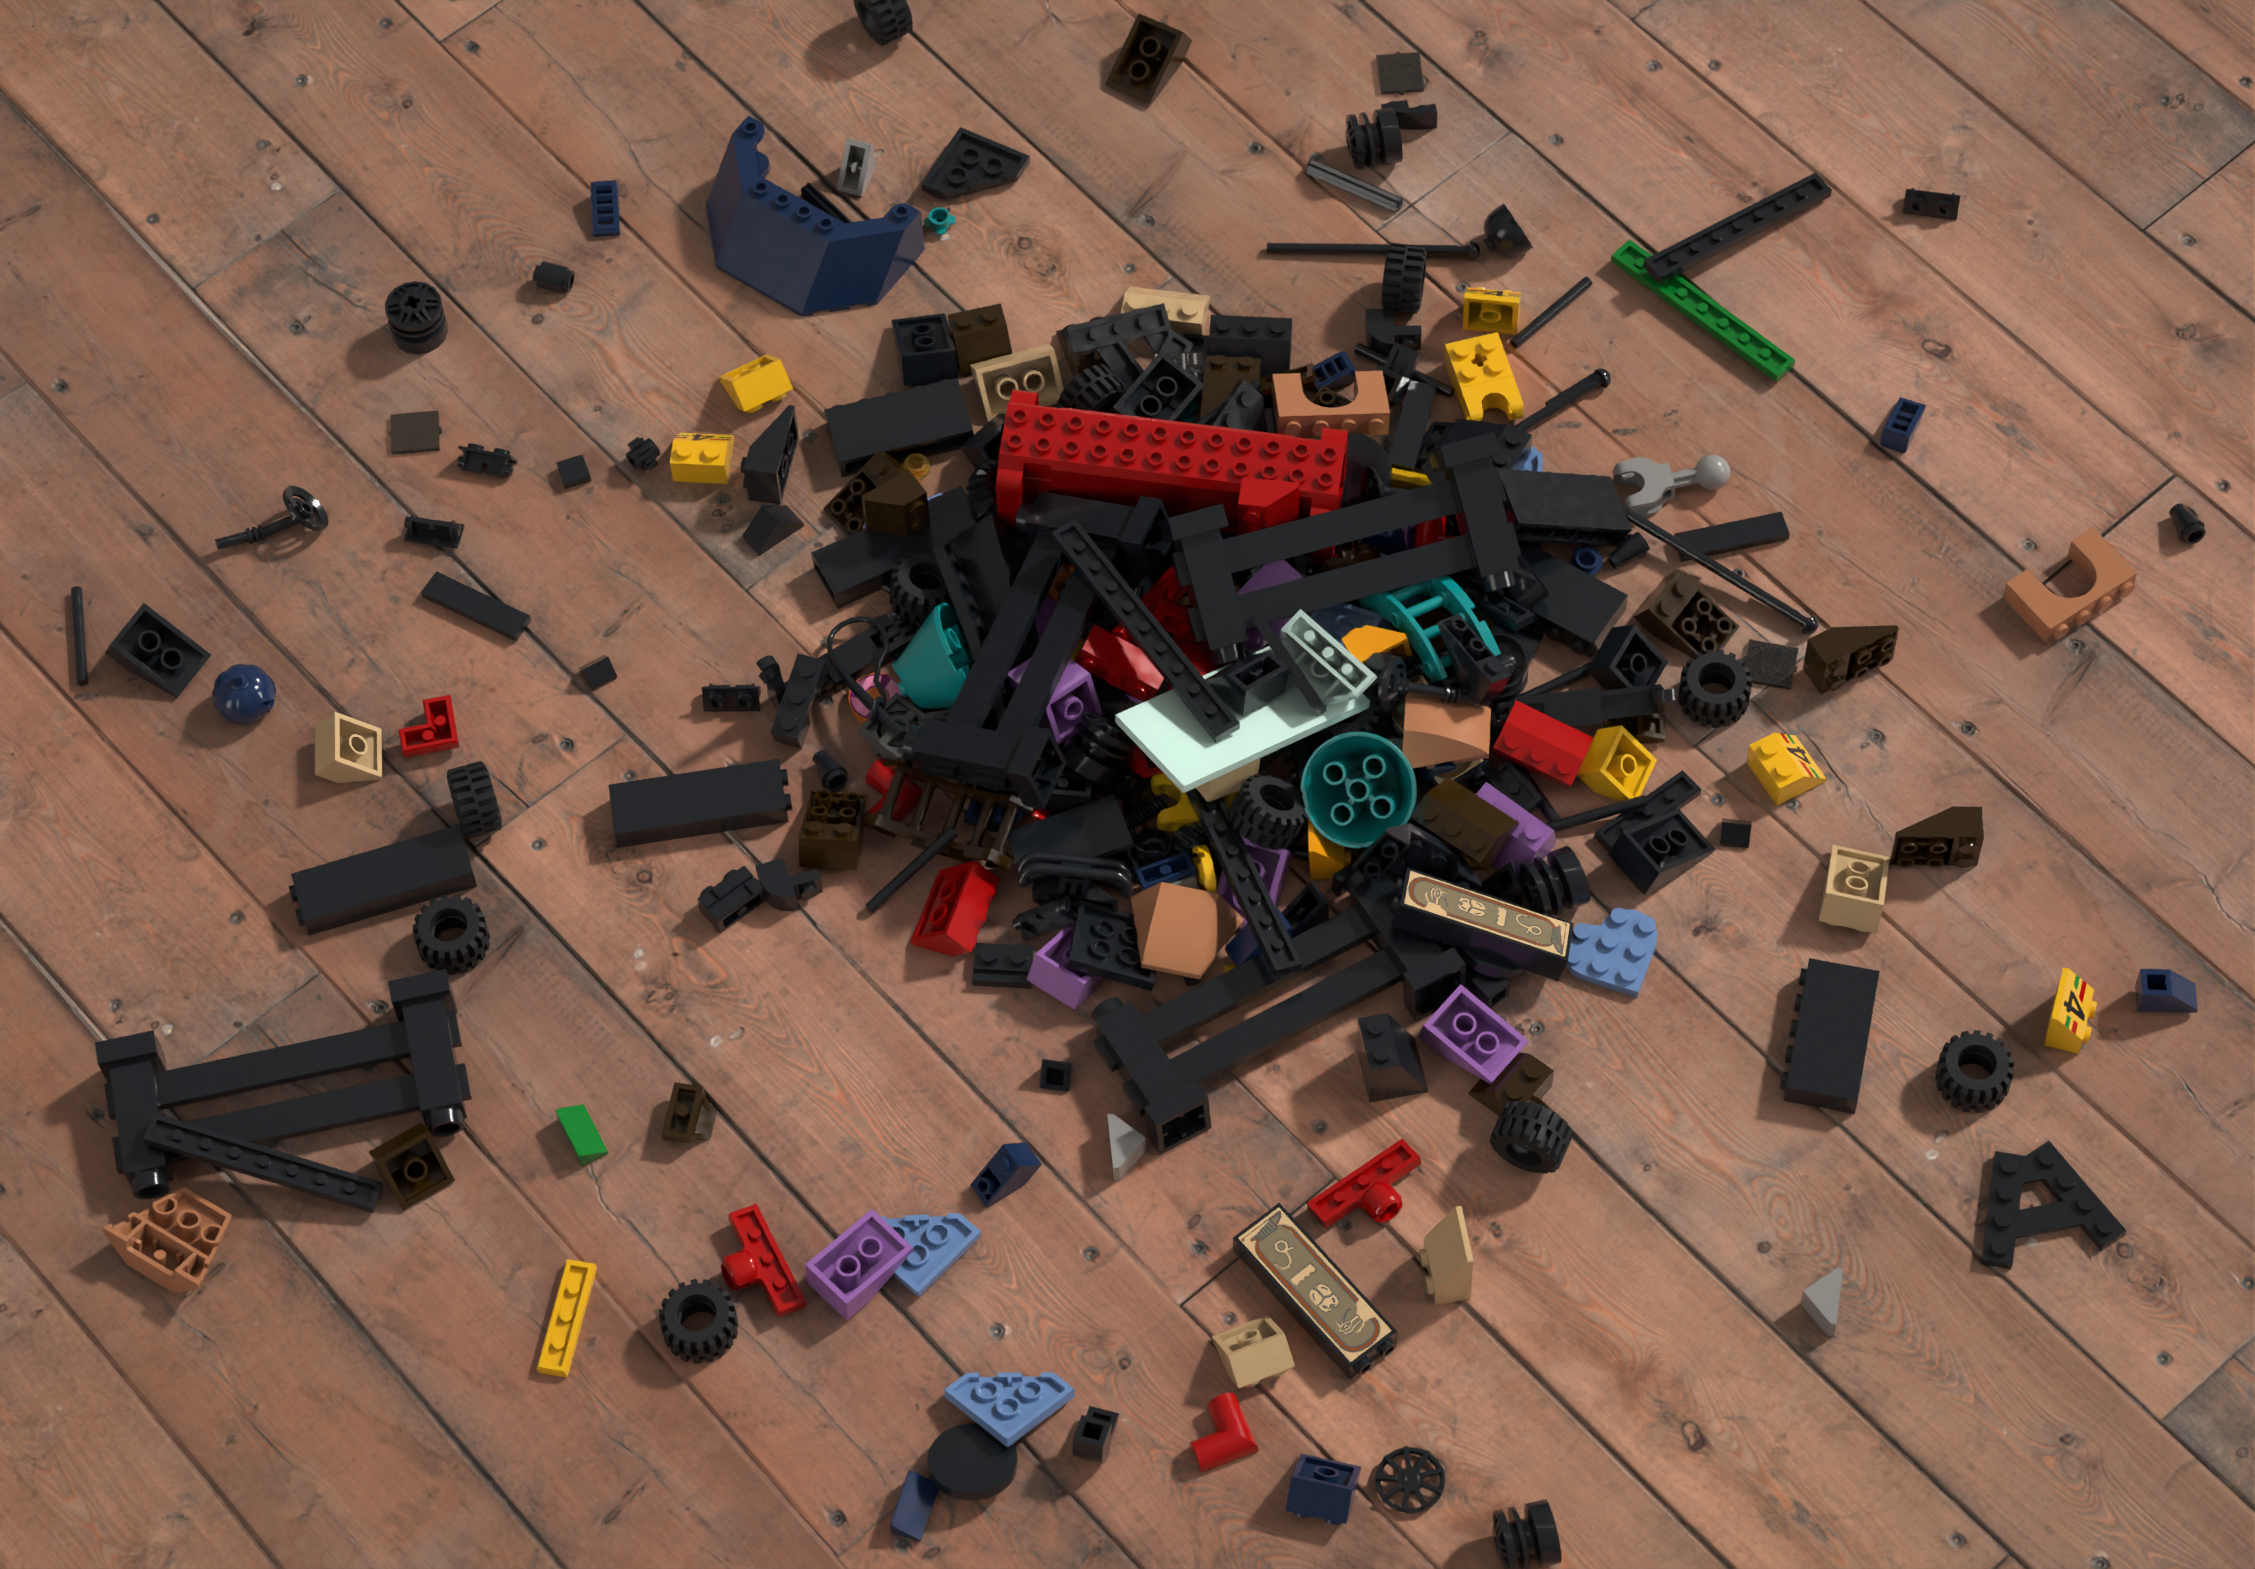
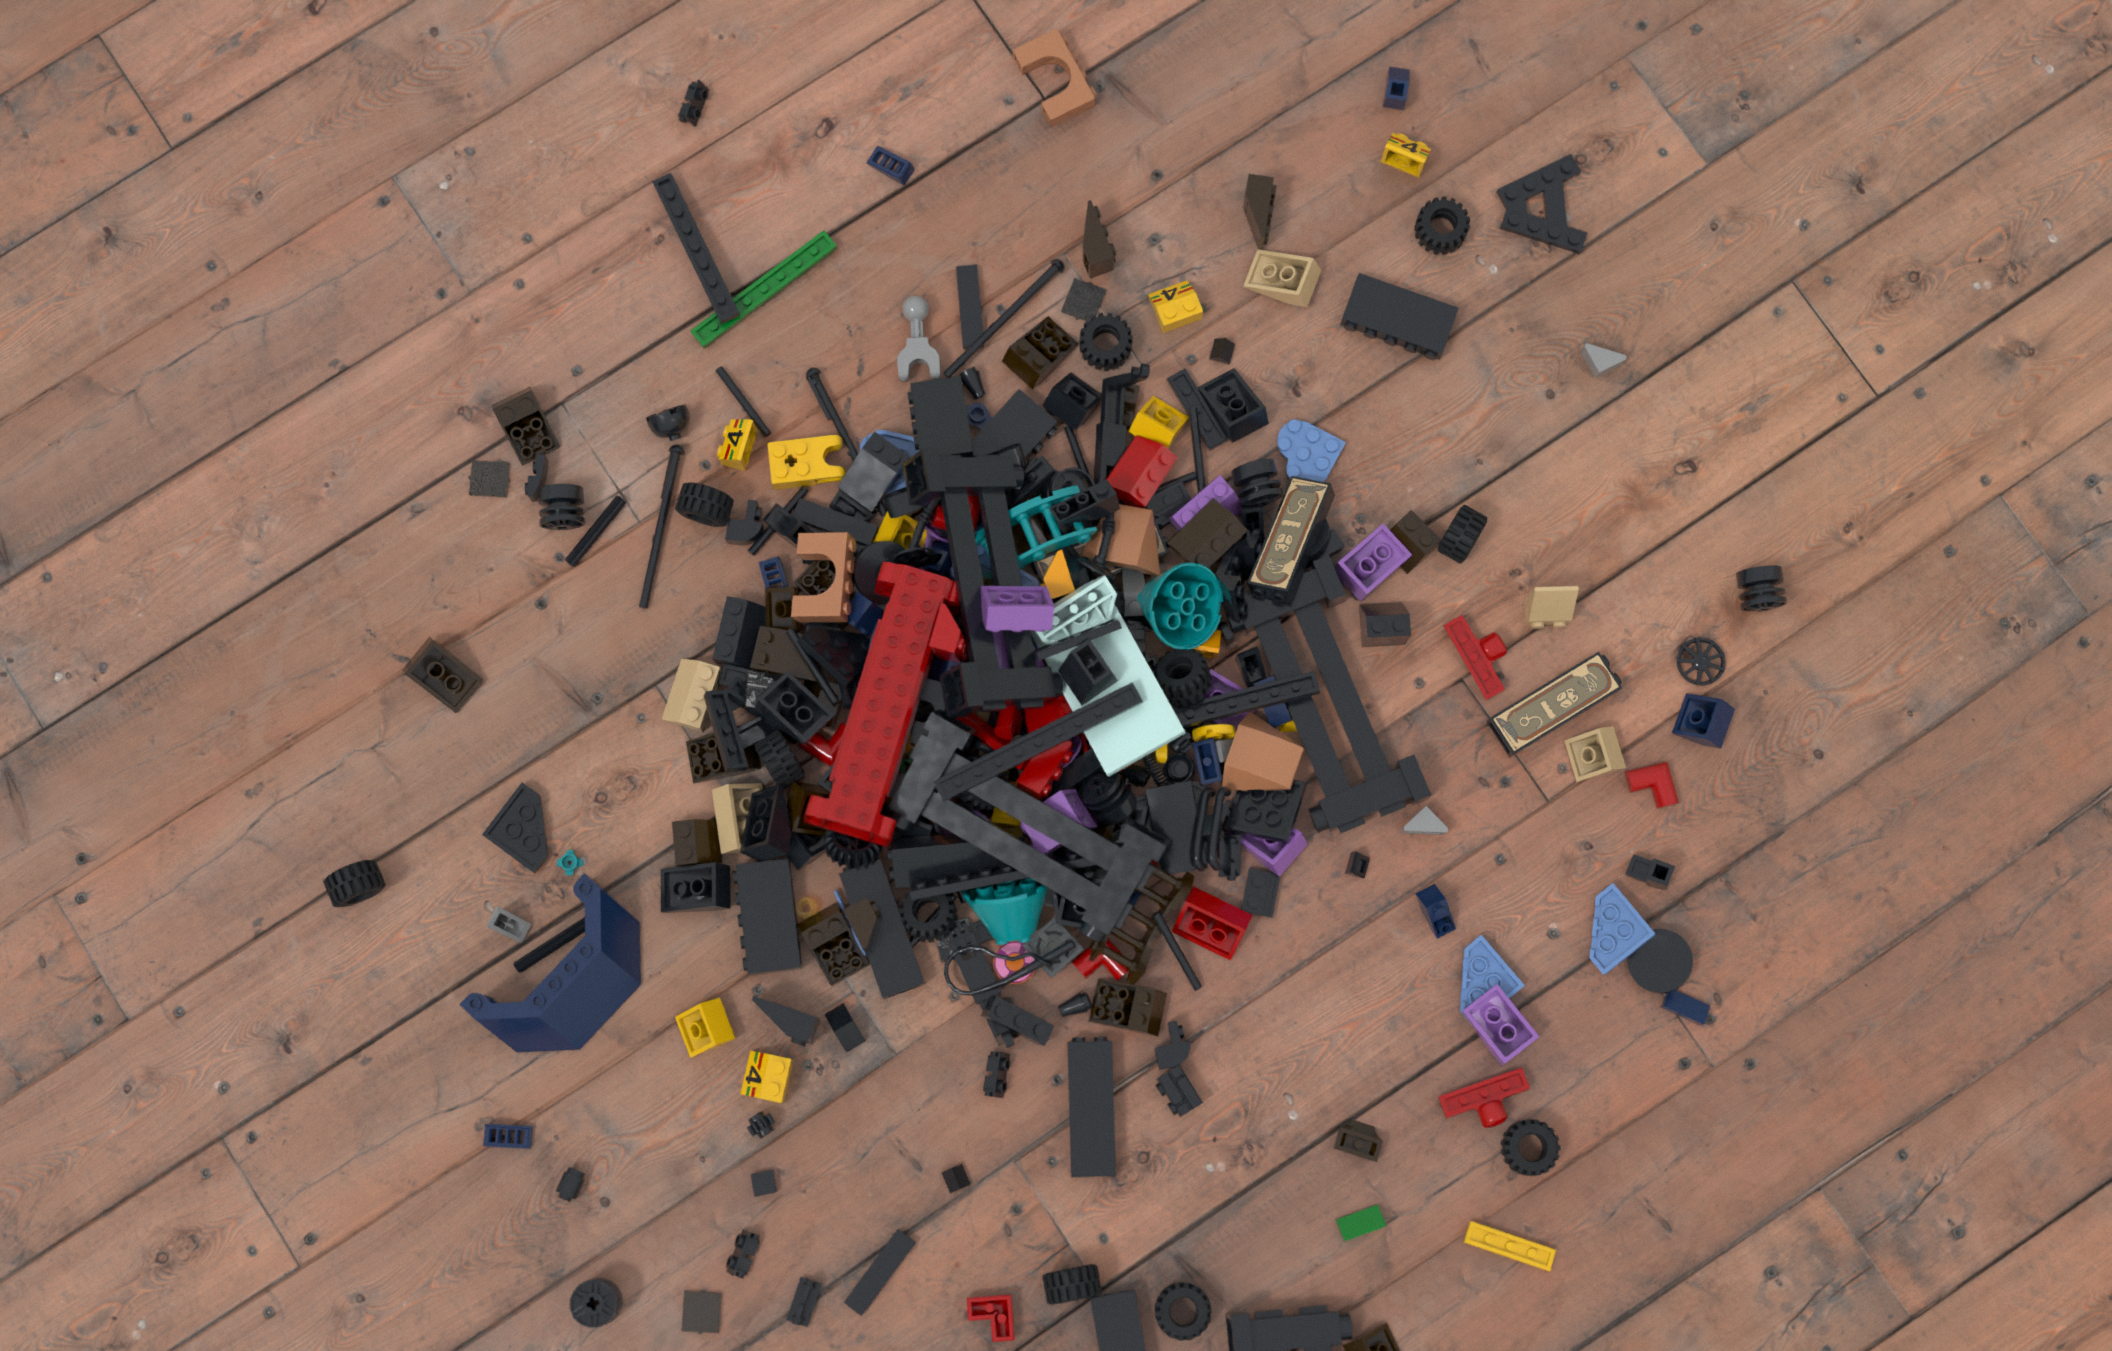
camera: 85 degrees left, 20 degrees up
(990, 395) = (767, 825): none -> black slope
(1312, 577) = (1016, 608): none -> medium lavender slope
(1473, 93) = (525, 425): none -> dark brown slope

